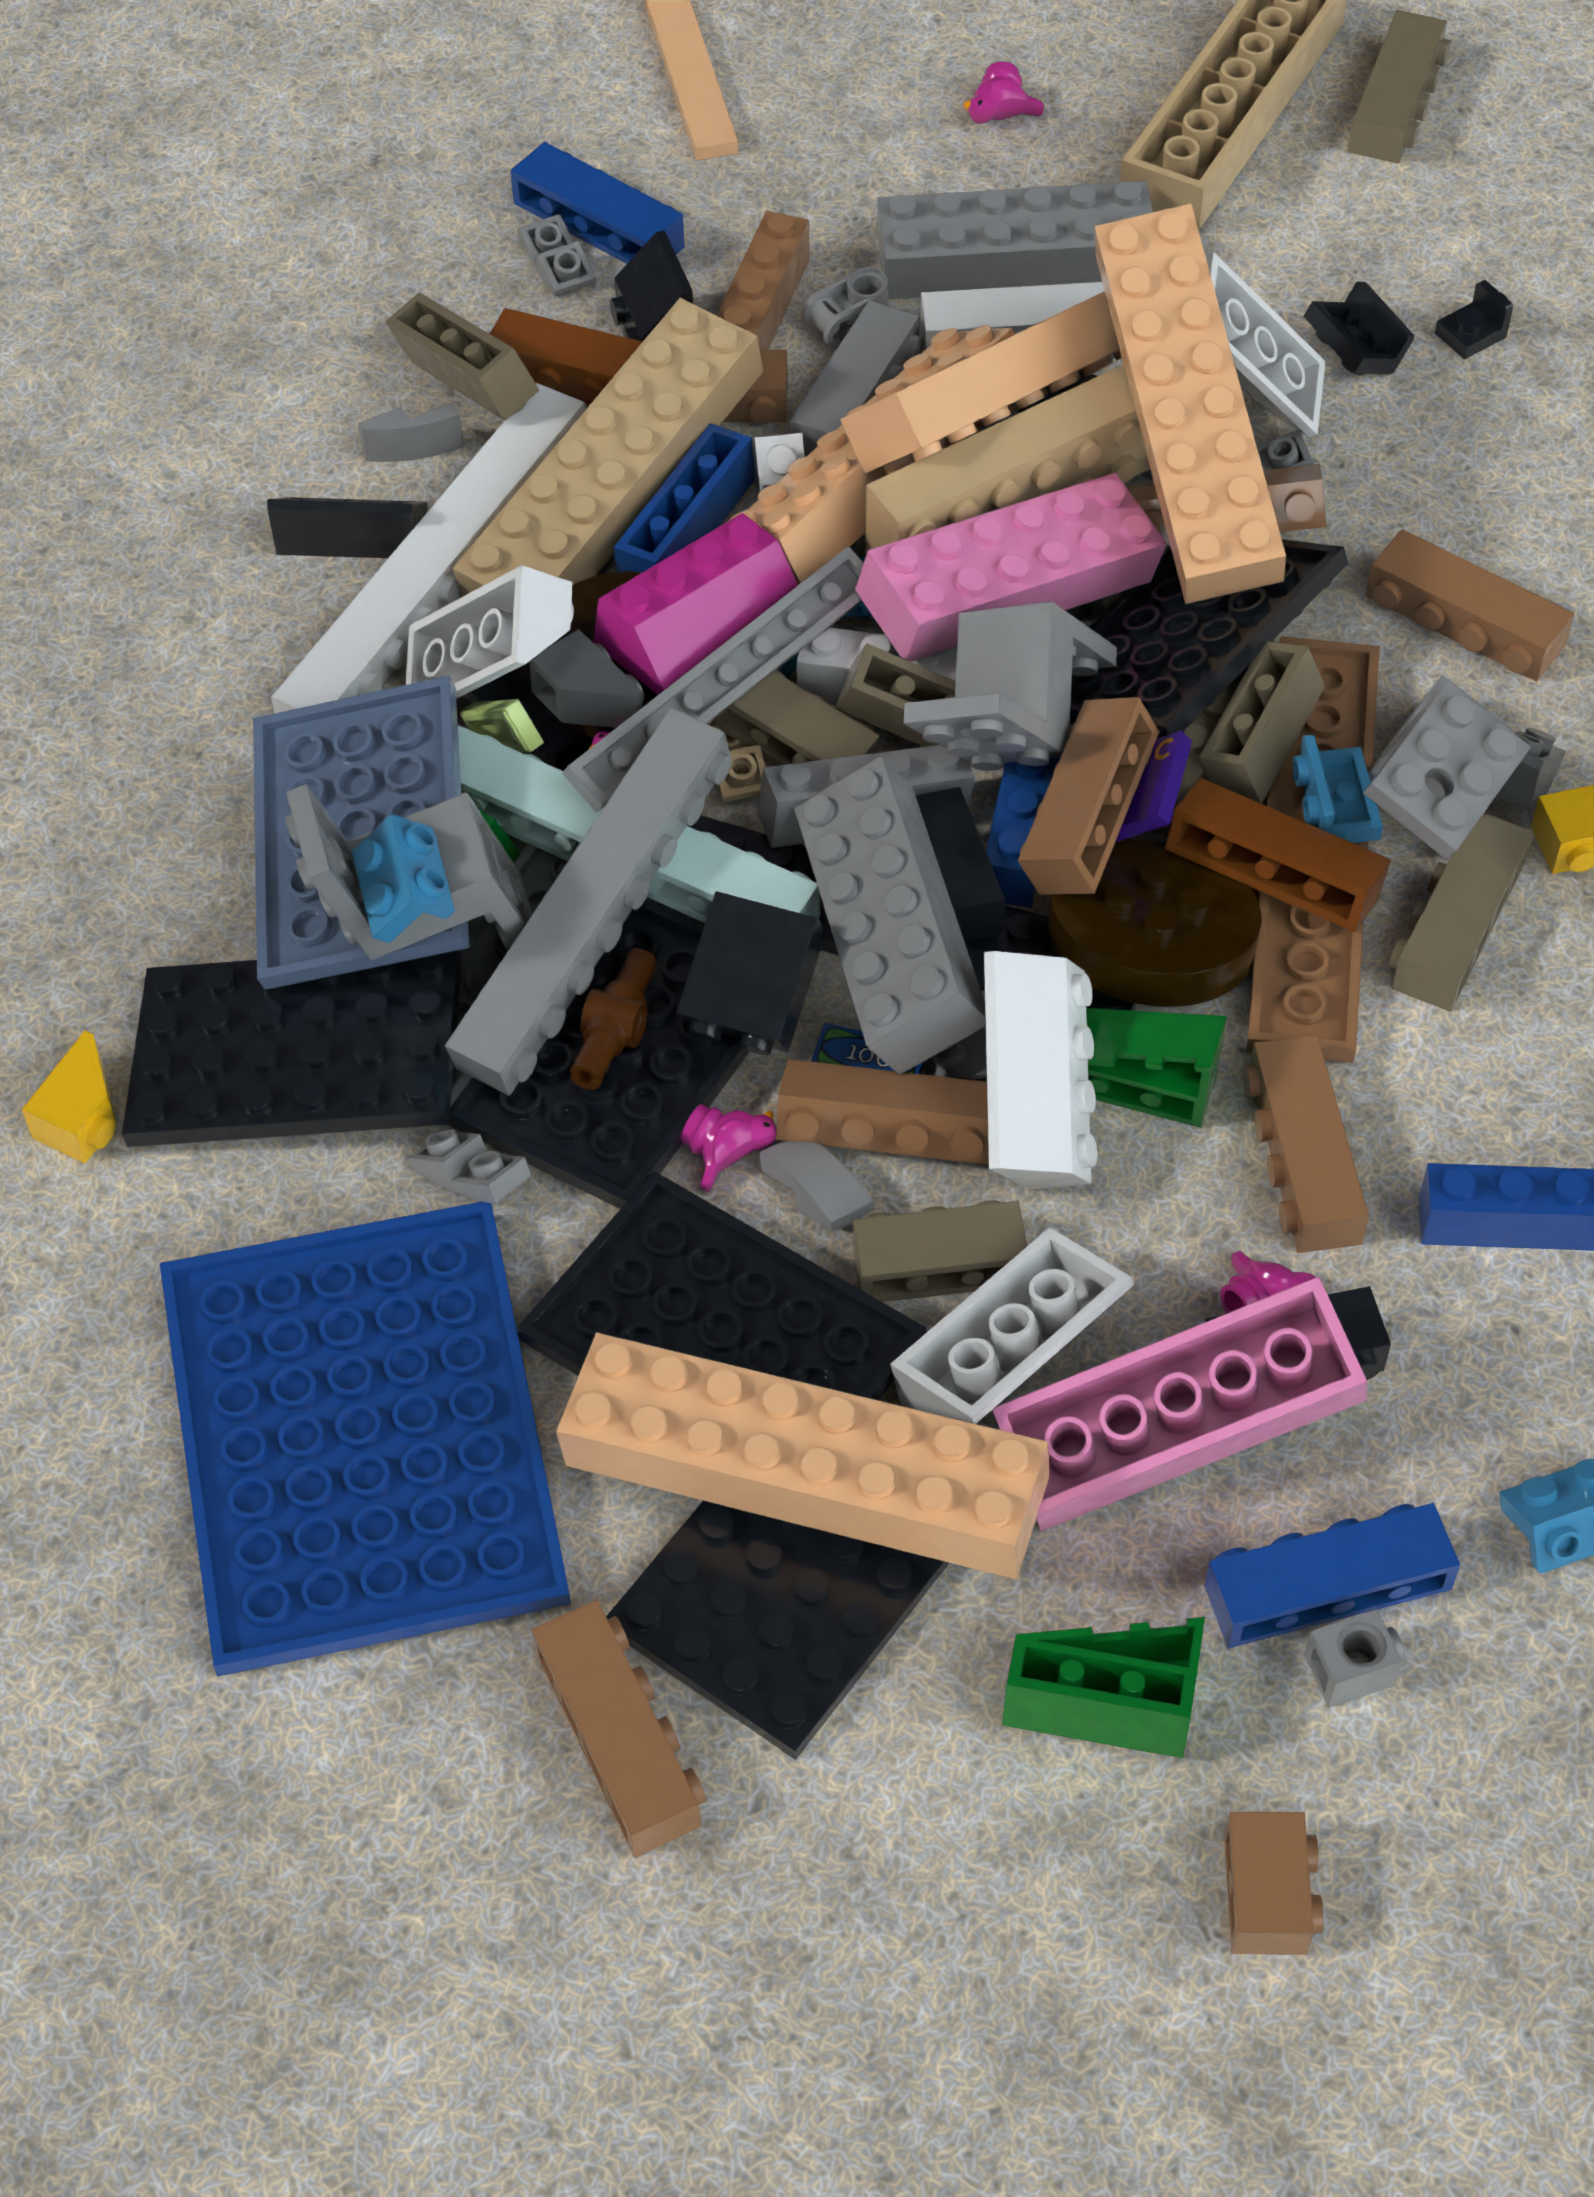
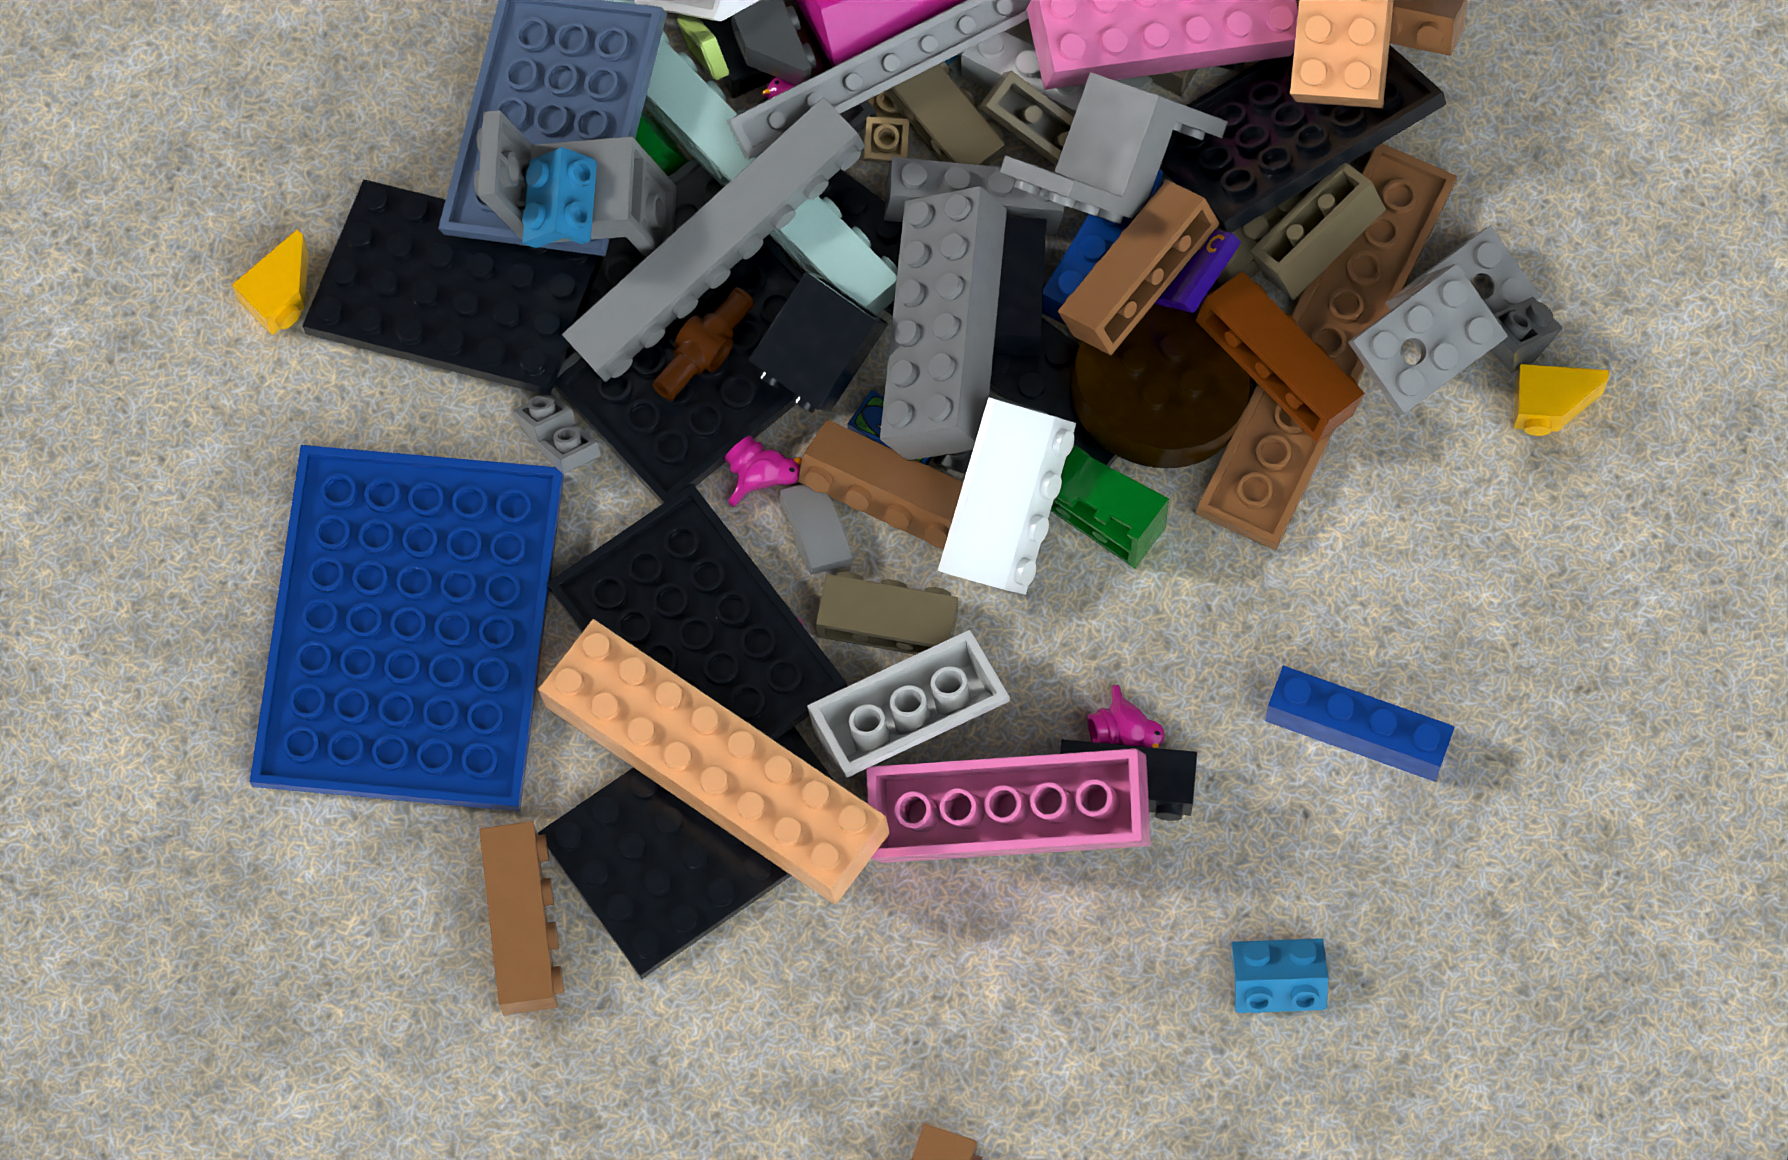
camera: 20 degrees right, 15 degrees up
(1107, 1686) = (878, 1001): green wedge -> none
(1306, 1144) = (1205, 611): medium nougat brick -> none
(1330, 1574) = (1076, 966): blue brick -> none
(1335, 791) = (1356, 304): dark azure bracket -> none
(1343, 1678) = (1052, 1050): light grey brick -> none
(1460, 912) = (1416, 446): dark tan brick -> none
(1469, 605) = (1550, 157): medium nougat brick -> none

